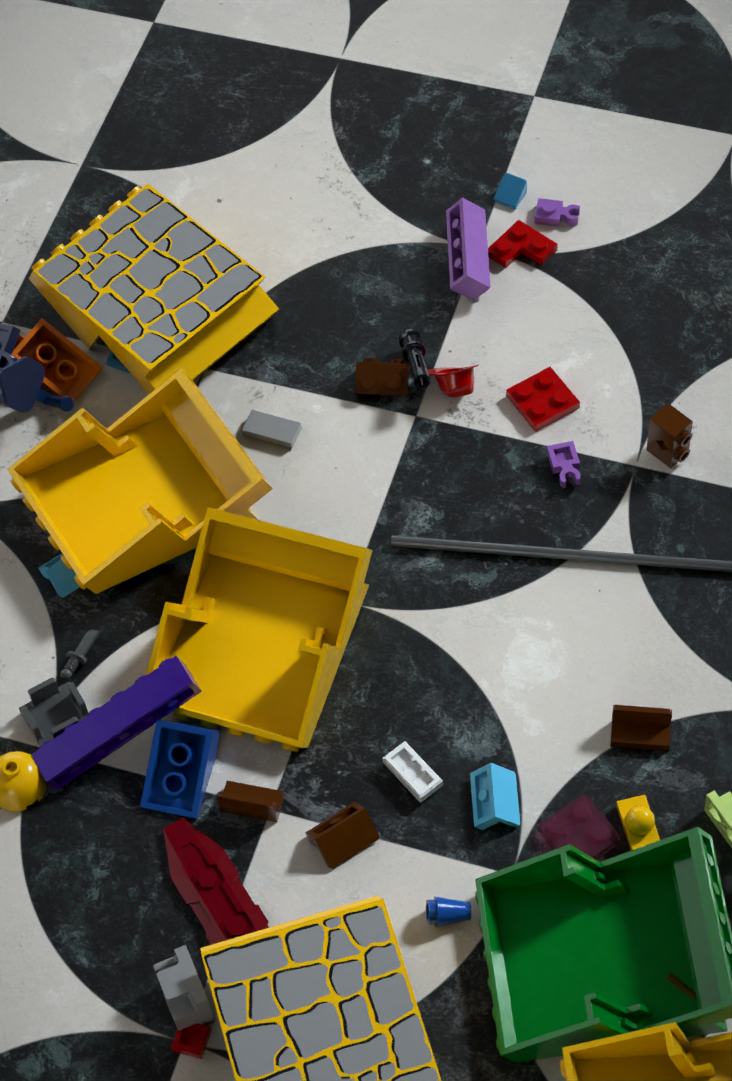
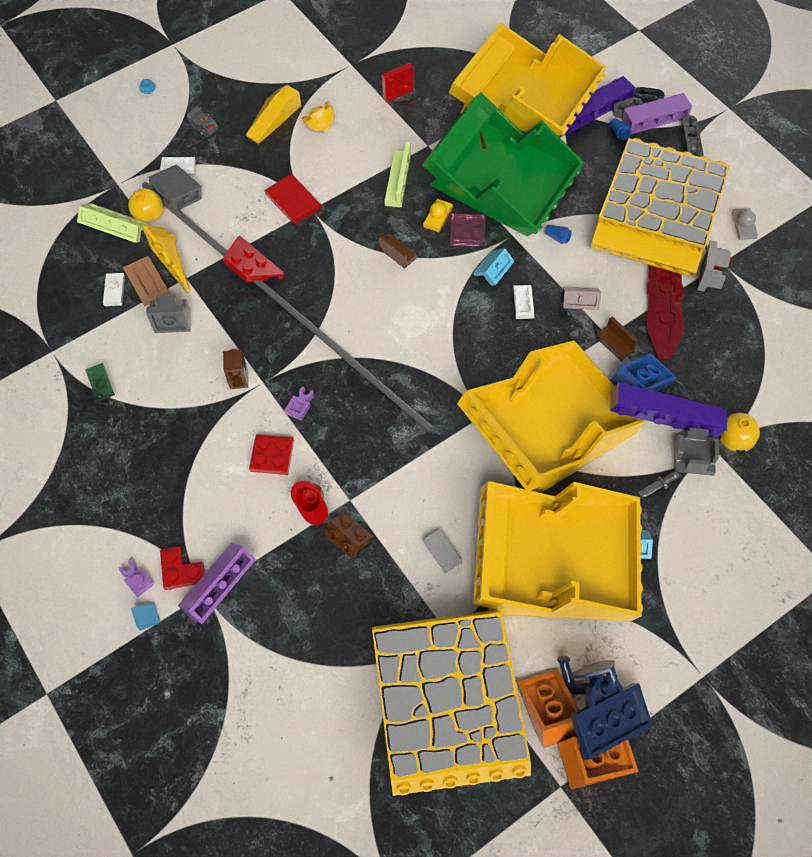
camera: 145 degrees left, 5 degrees up
(414, 353) = (317, 531): black pin -> none

